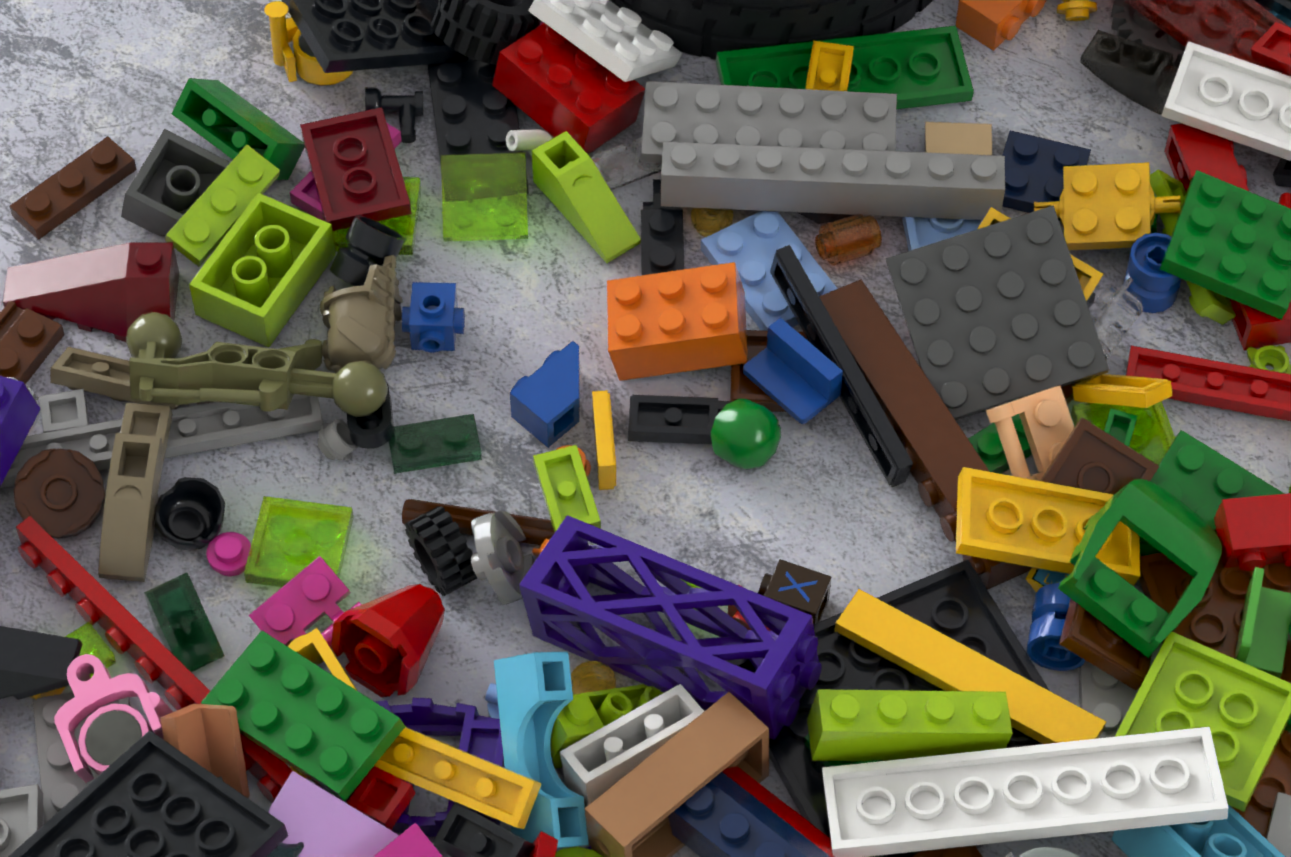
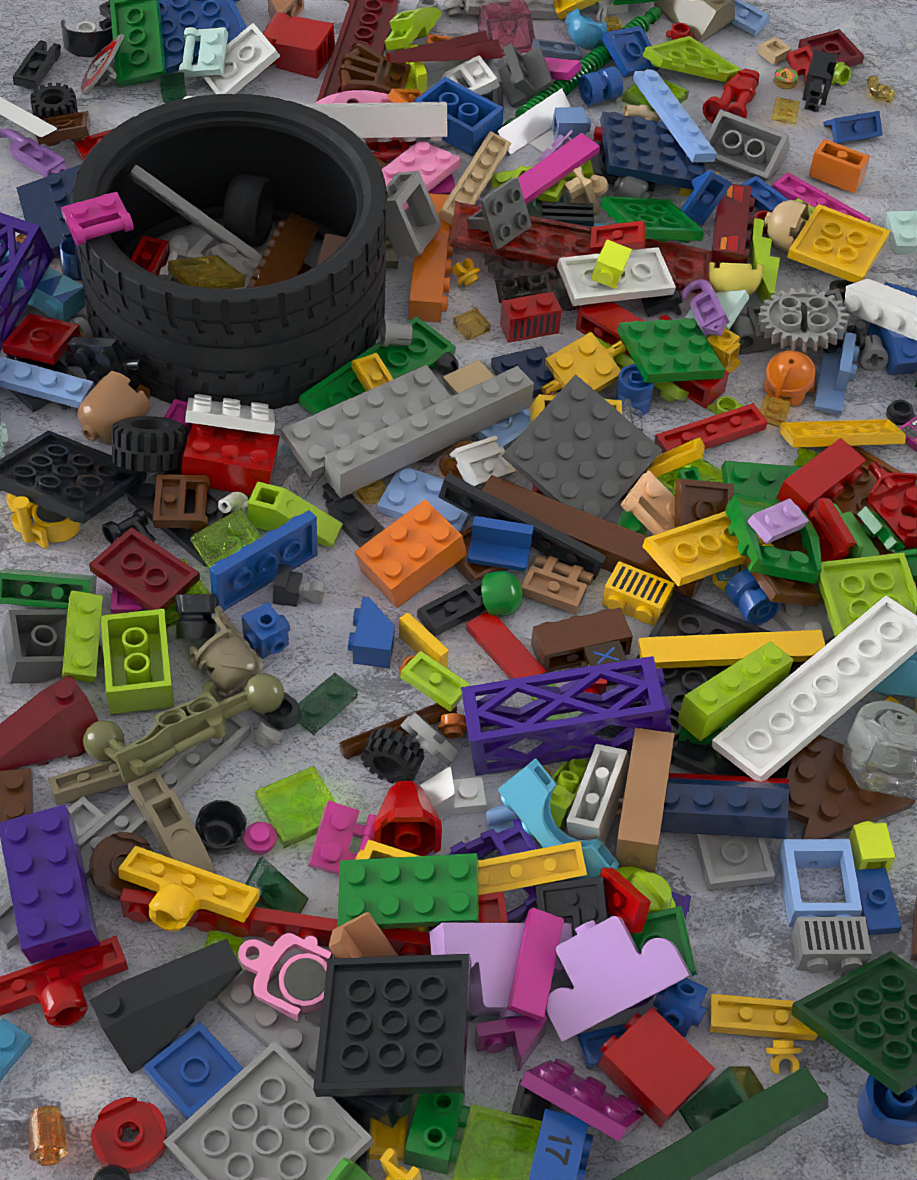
camera: 40 degrees left, 5 degrees down
(81, 558) = (185, 889): none -> yellow plate
(459, 99) = (171, 501): none -> reddish brown plate
(477, 640) = (456, 795): none -> white slope
(497, 232) = (258, 562): none -> blue plate
(512, 282) = (289, 587): none -> black piece
(699, 507) = (503, 647): none -> red tile
(765, 534) = (562, 642): none -> reddish brown brick
(823, 469) = (556, 589): none -> medium nougat plate
(861, 253) = (481, 460): none -> white plate
(899, 33) = (395, 333): none -> light grey bush
(915, 532) = (637, 593): none -> yellow brick
(945, 107) = (446, 364): none -> black hinge
(1027, 73) = (471, 324): none -> clear yellow tile
(1105, 102) = (530, 317): none -> red brick
(1150, 545) = (778, 521): none -> lavender plate
(1225, 602) = (832, 531): none -> red plate
(1246, 85) = (611, 264): none -> neon yellow brick

